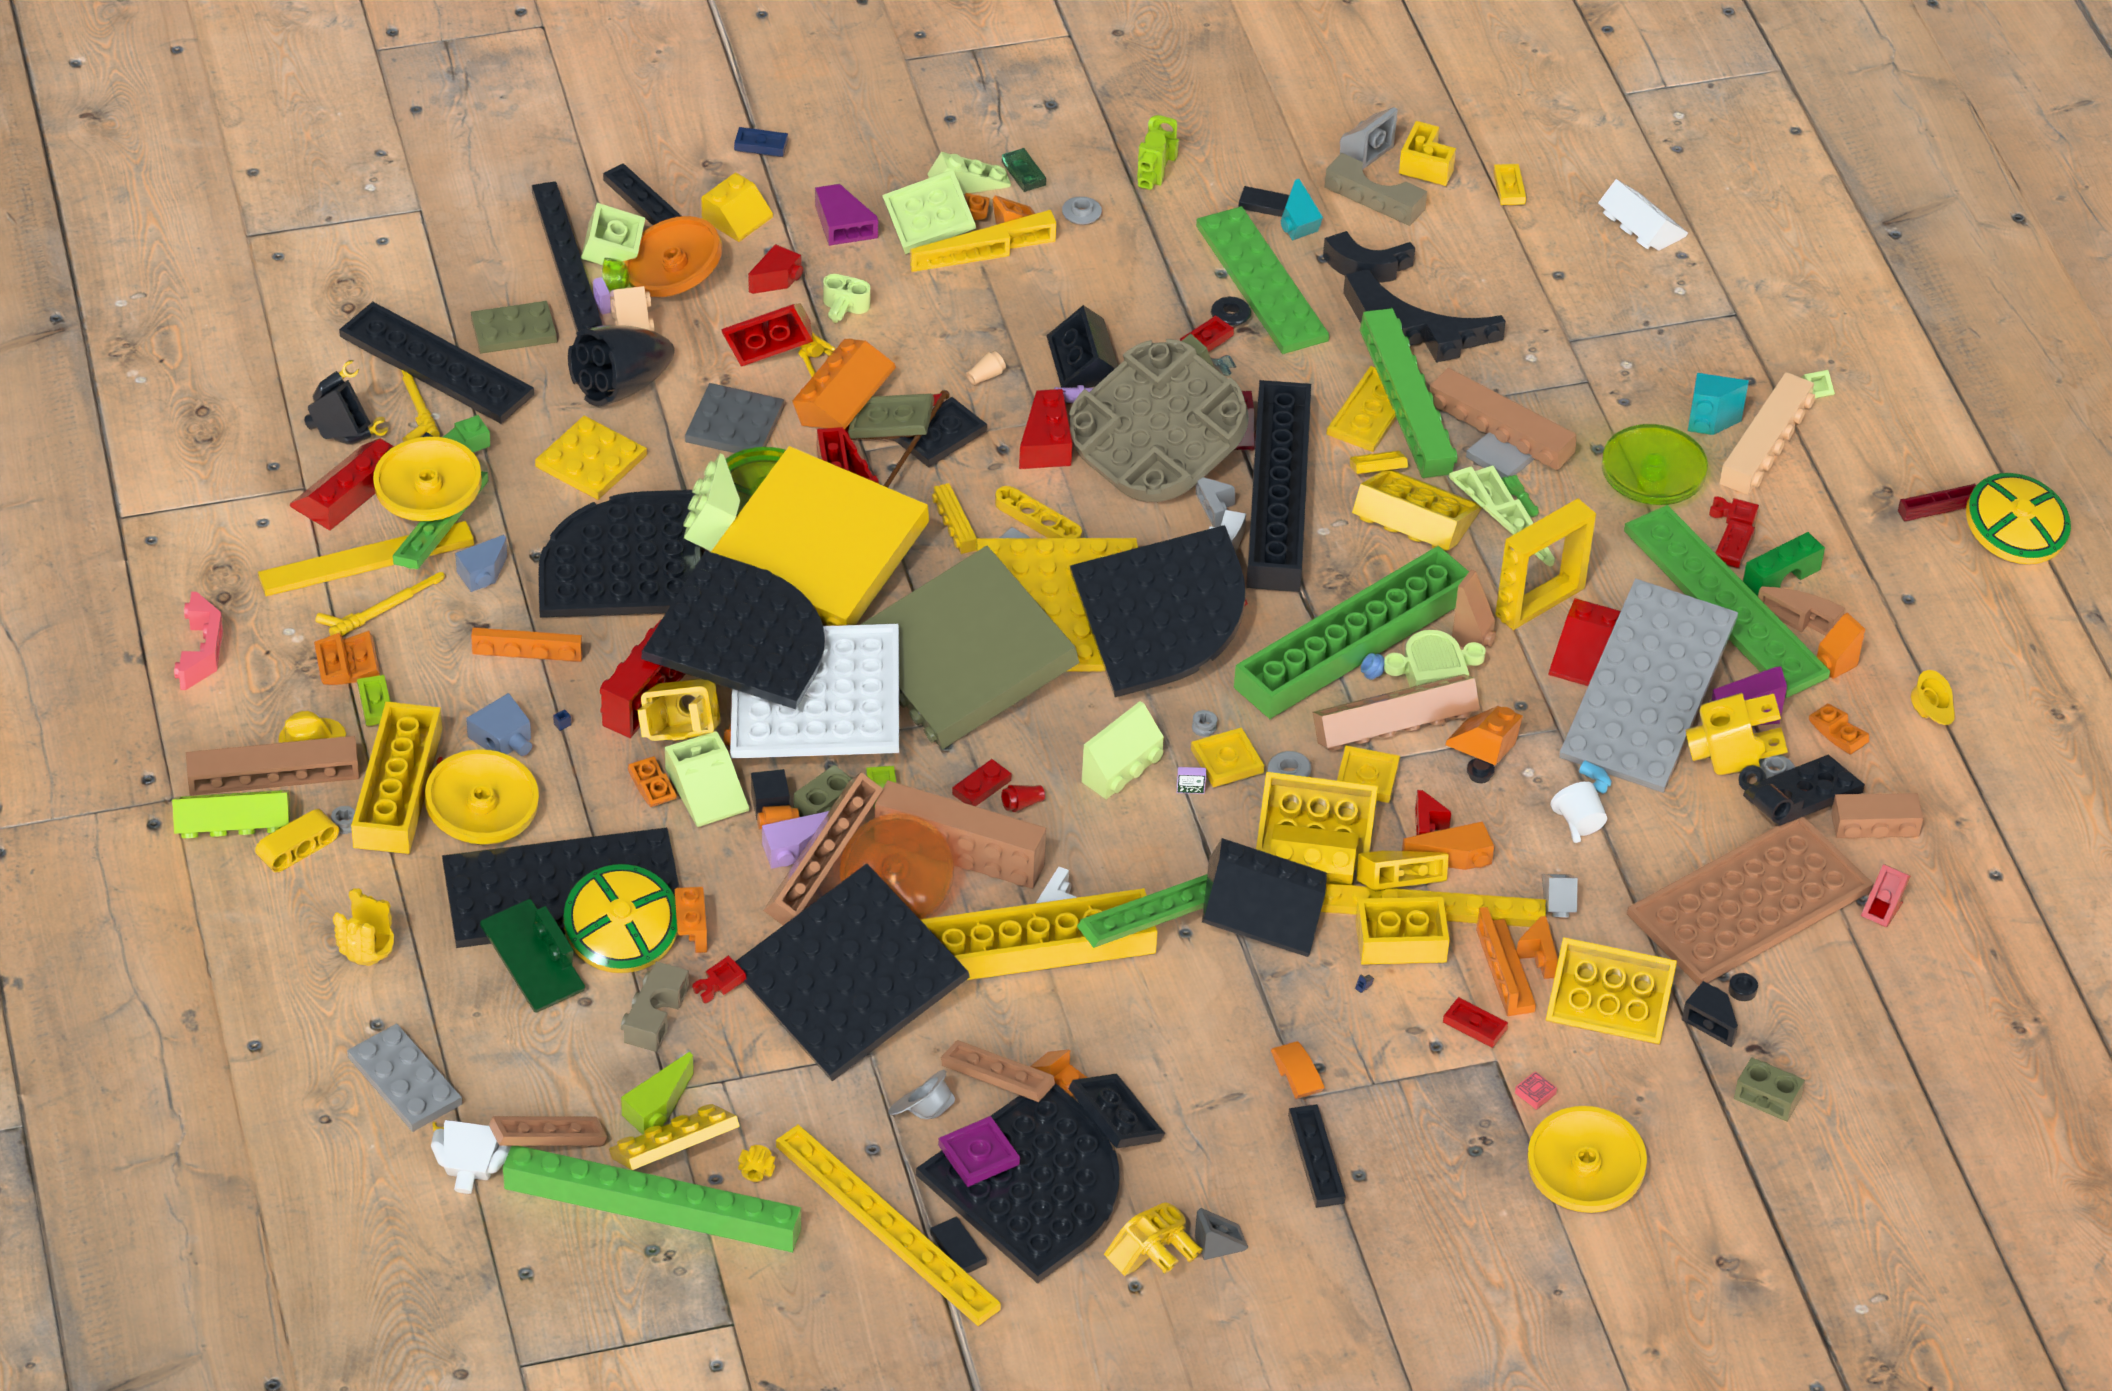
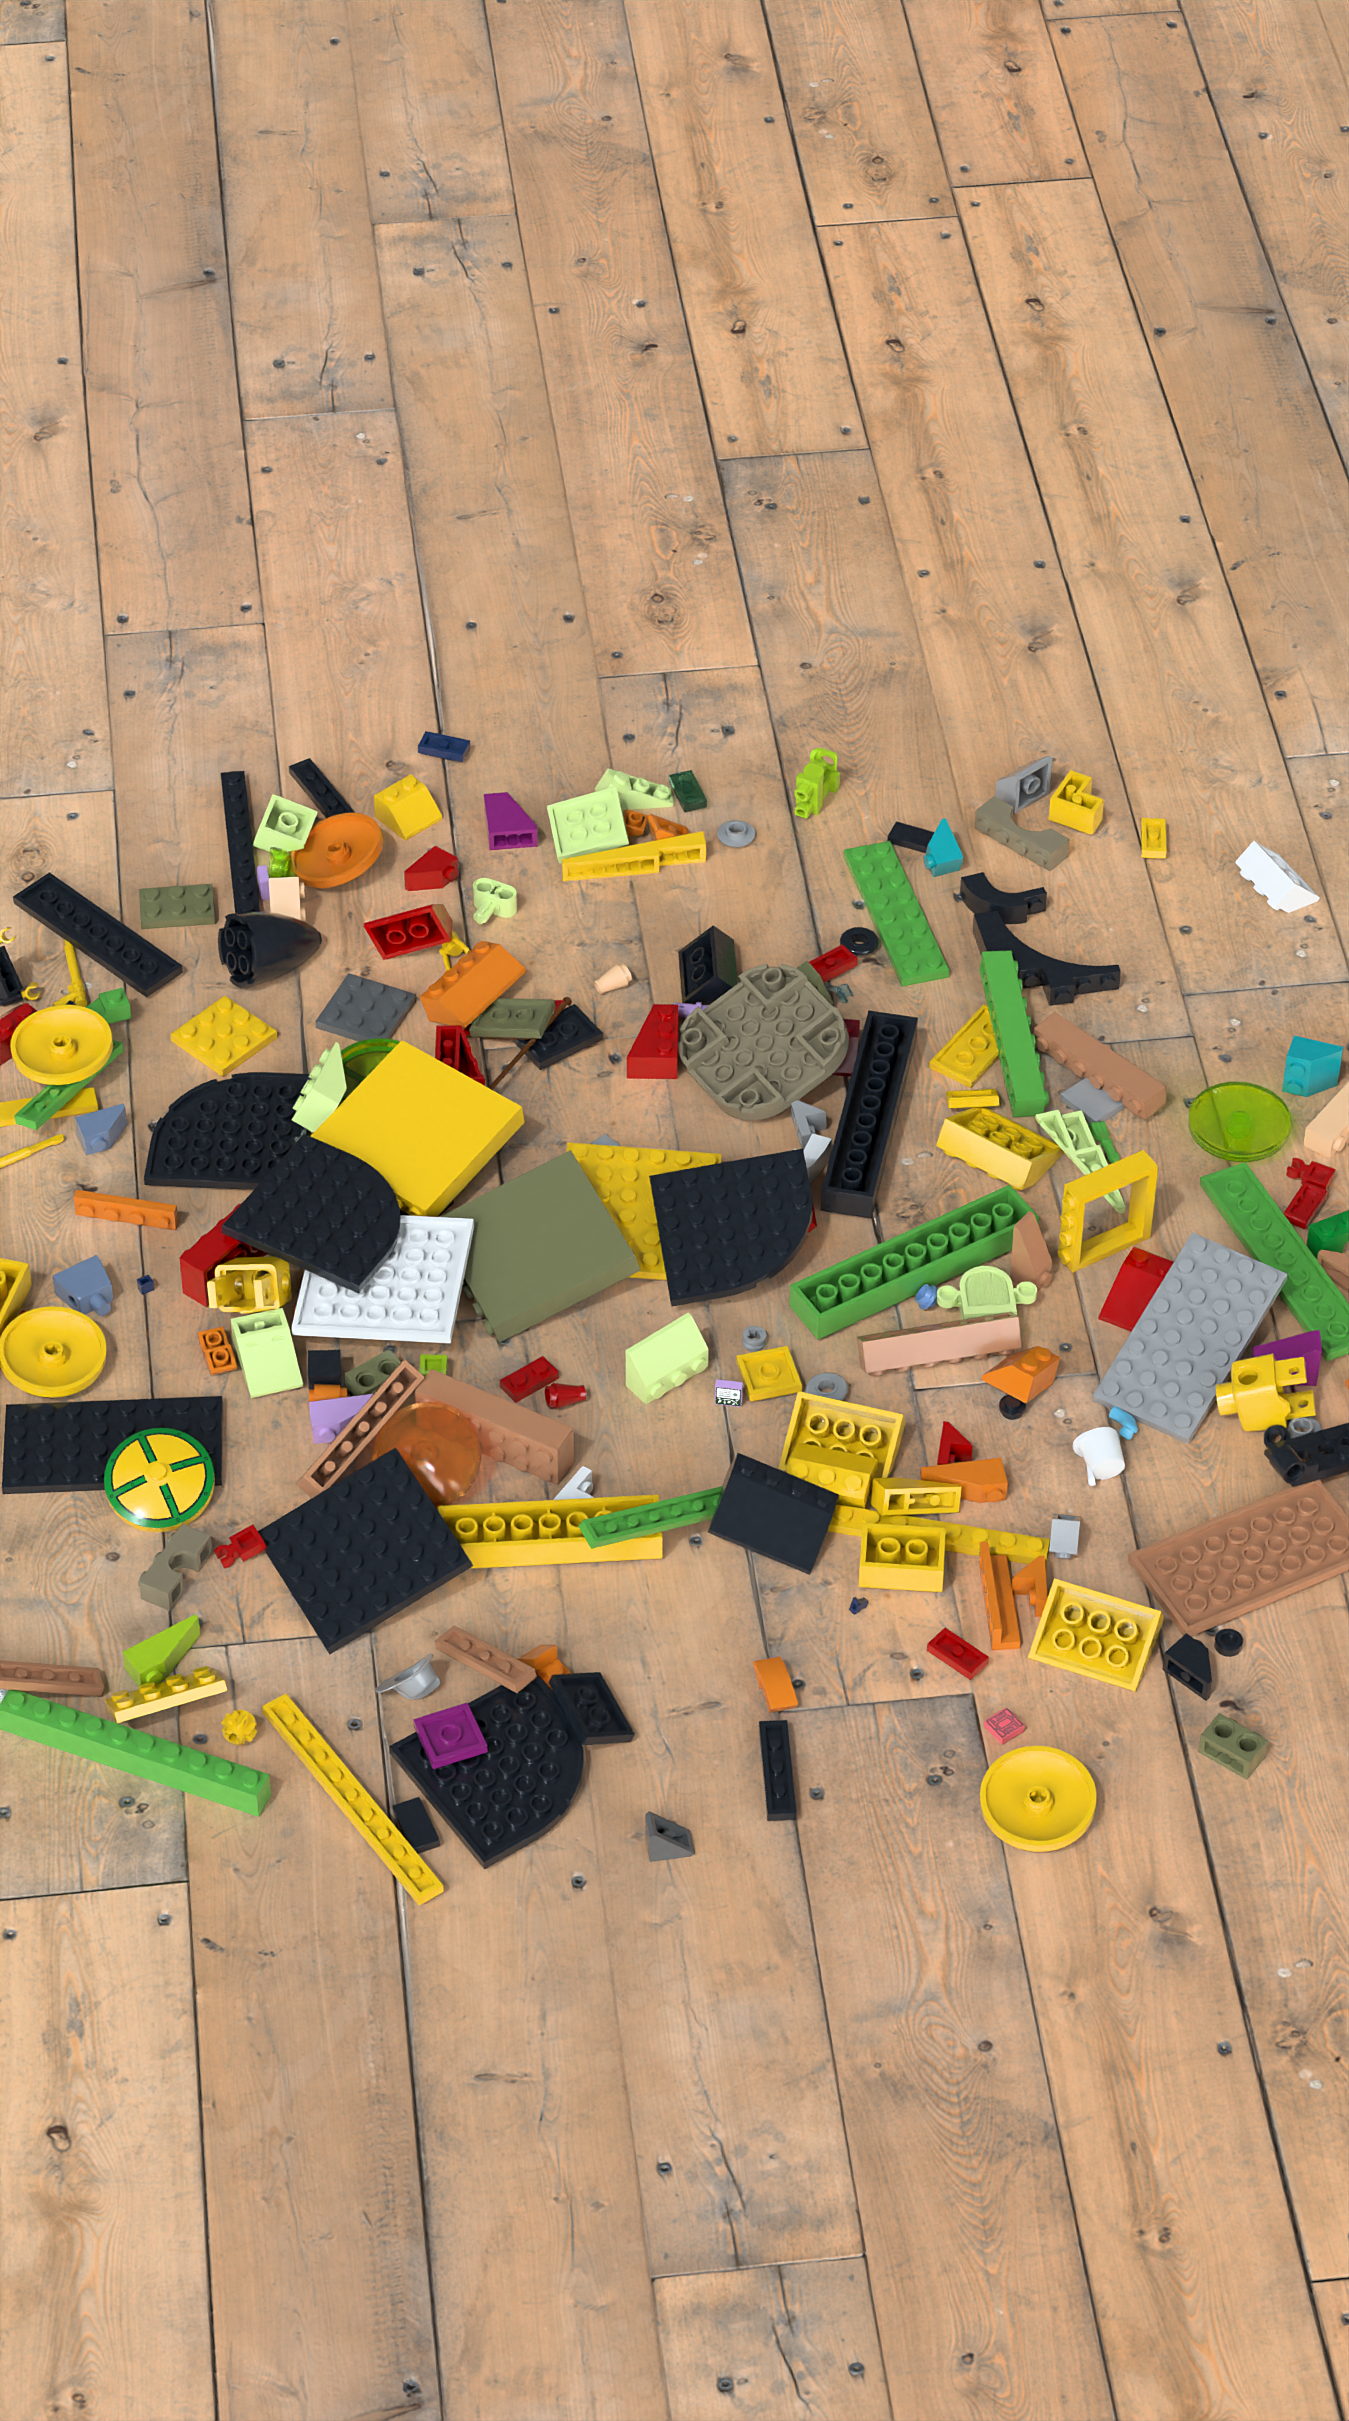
camera: 10 degrees right, 0 degrees up
(534, 954) = (70, 1507): dark green bracket -> none
(691, 916) = (226, 1483): orange bracket -> none
(954, 518) = (553, 1120): yellow piece -> none
(1012, 501) = (637, 1123): yellow beam -> none
(1146, 1236) = (592, 1831): yellow piece -> none
(1370, 768) = (903, 1397): yellow plate -> none

